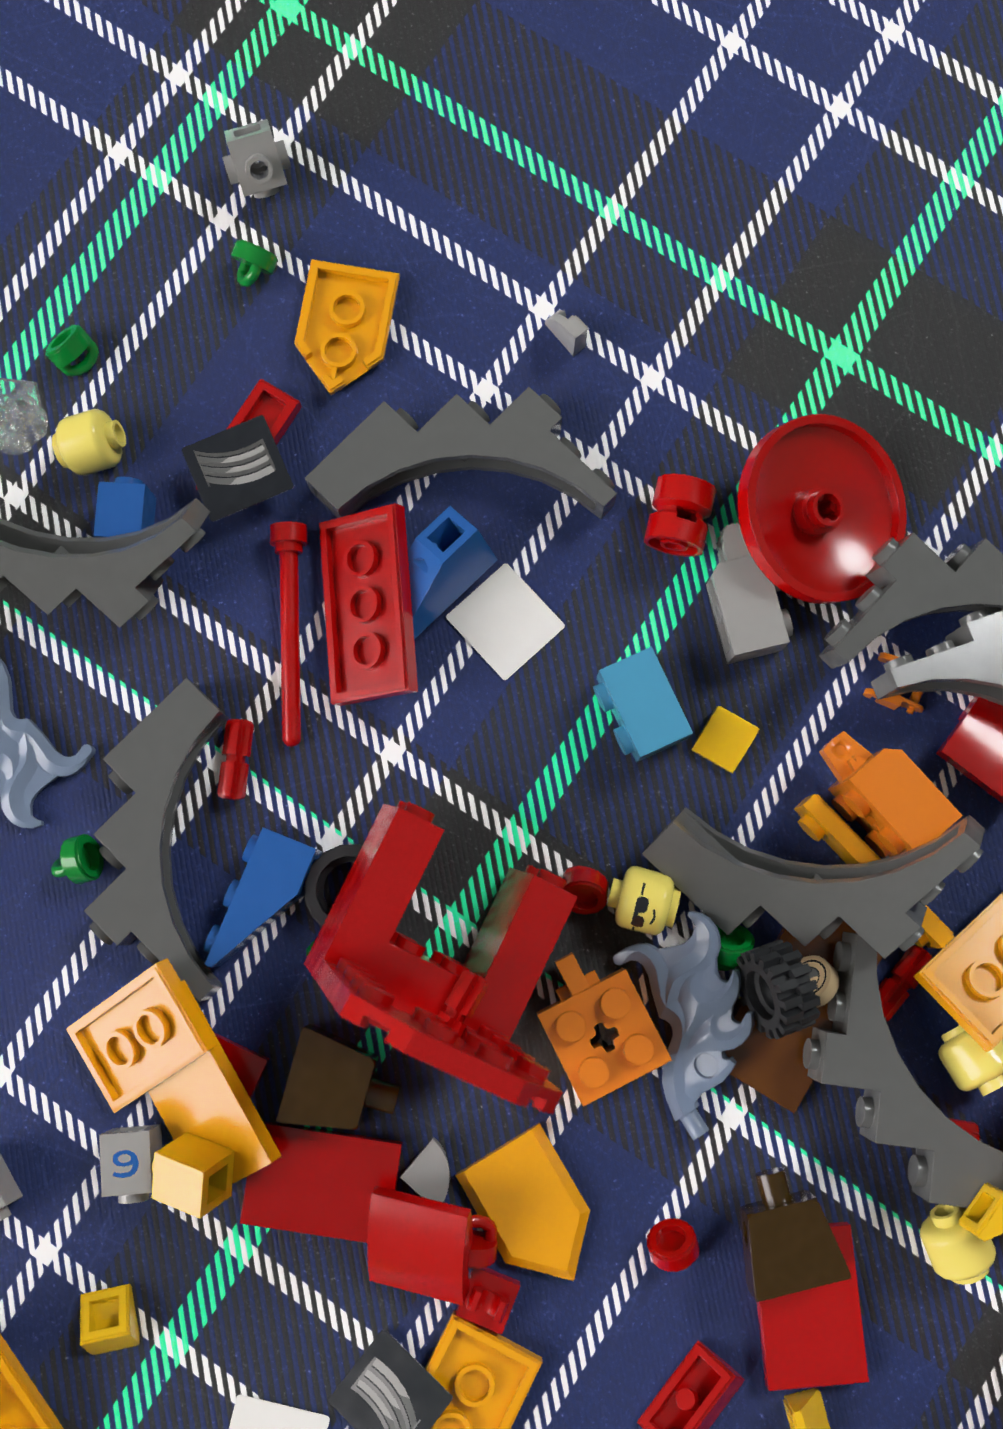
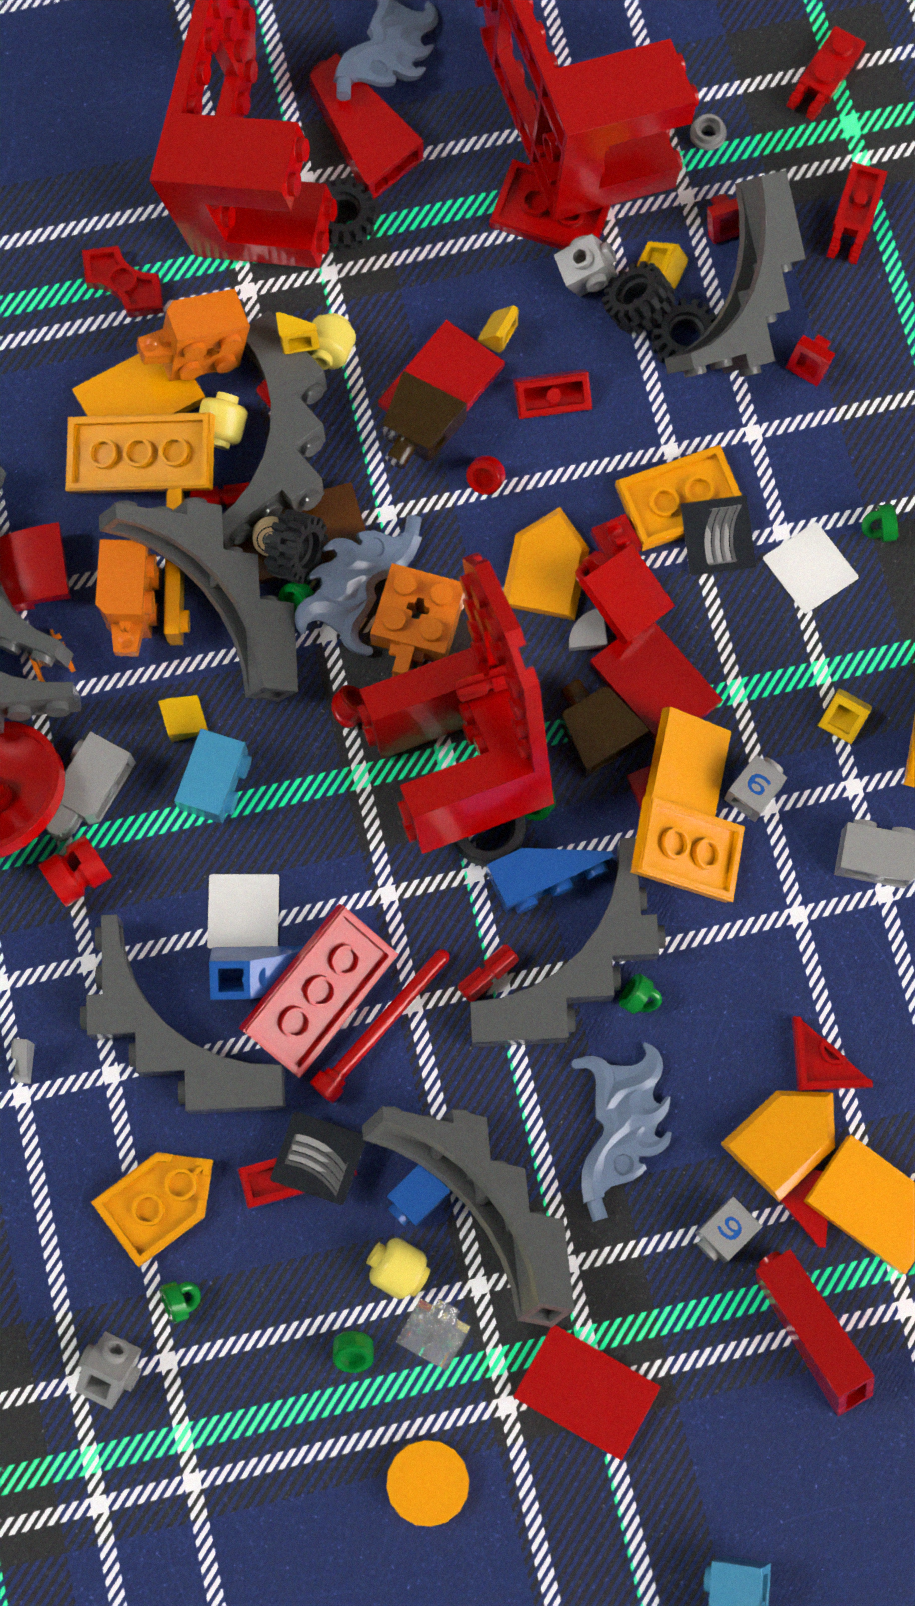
camera: 140 degrees left, 5 degrees down
(192, 1174) = (723, 744): yellow brick -> none
(644, 900) = (322, 666): light yellow head -> none

